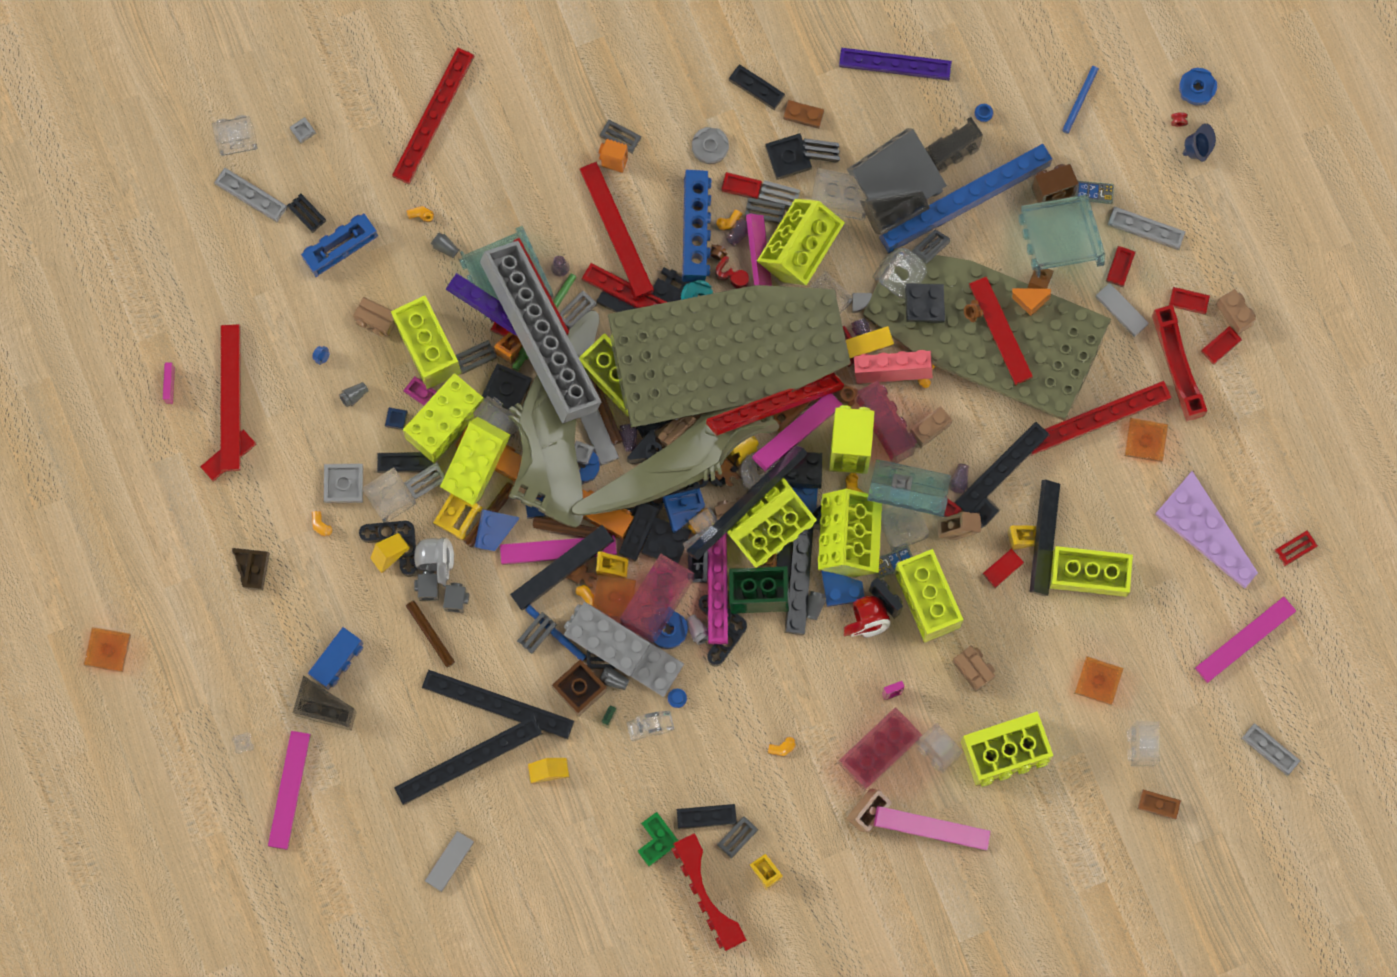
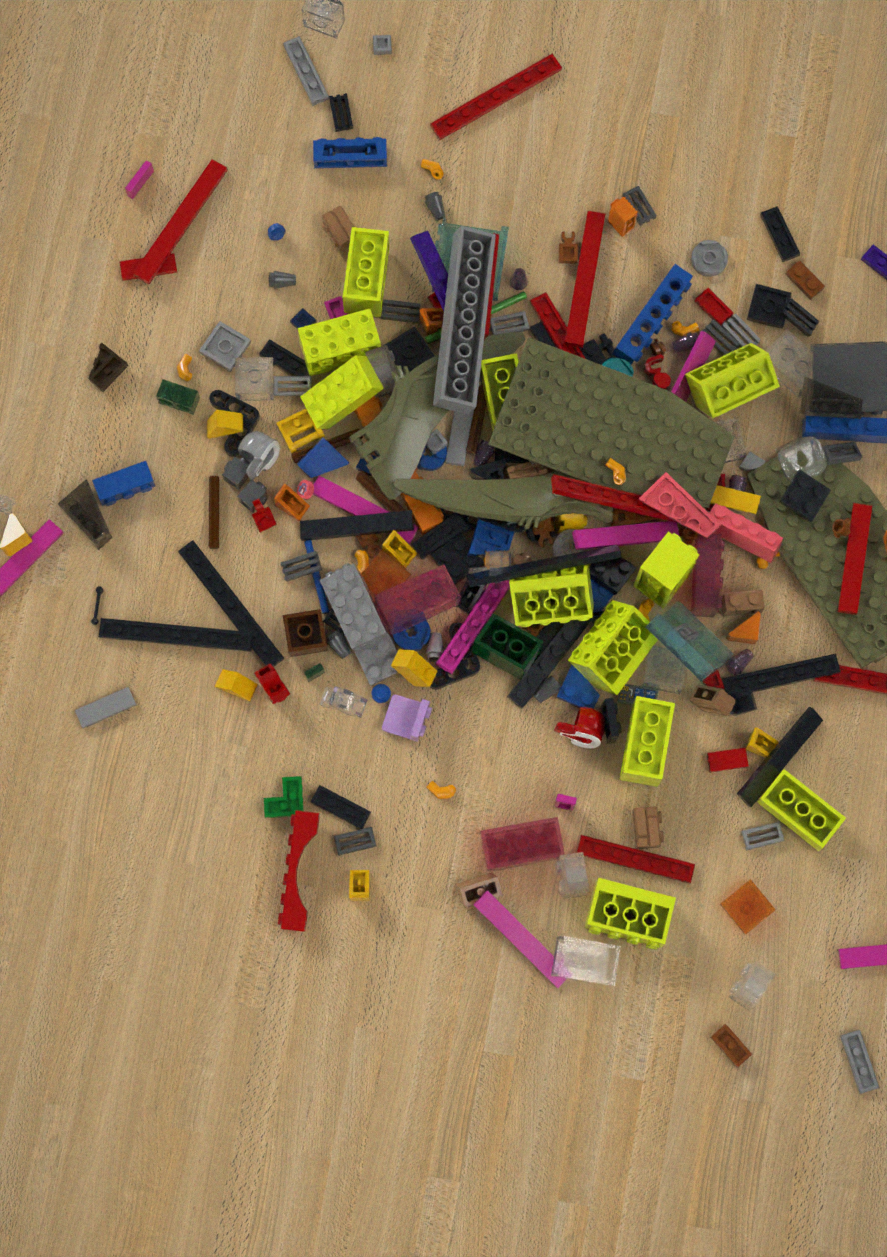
camera: 30 degrees right, 0 degrees up
(272, 765) = (14, 537): none -> slope
(332, 553) = (178, 397): none -> clear green brick
(375, 764) = (99, 590): none -> black hinge
(476, 611) = (263, 517): none -> red plate
(492, 583) = (290, 502): none -> orange slope
(496, 564) = (305, 489): none -> coral tile
(580, 749) = (272, 684): none -> red brick
(586, 214) = (567, 250): none -> dark orange plate
(693, 658) = (414, 668): none -> yellow brick
(712, 704) = (406, 717): none -> lavender bracket
(757, 381) = (618, 471): none -> light orange arm
(826, 378) = (680, 506): none -> coral wing
(950, 449) = (747, 631): none -> orange slope
(981, 700) = (636, 859): none -> red tile
(996, 812) = (585, 961): none -> clear brick
(1062, 625) = (746, 840): none -> light grey tile

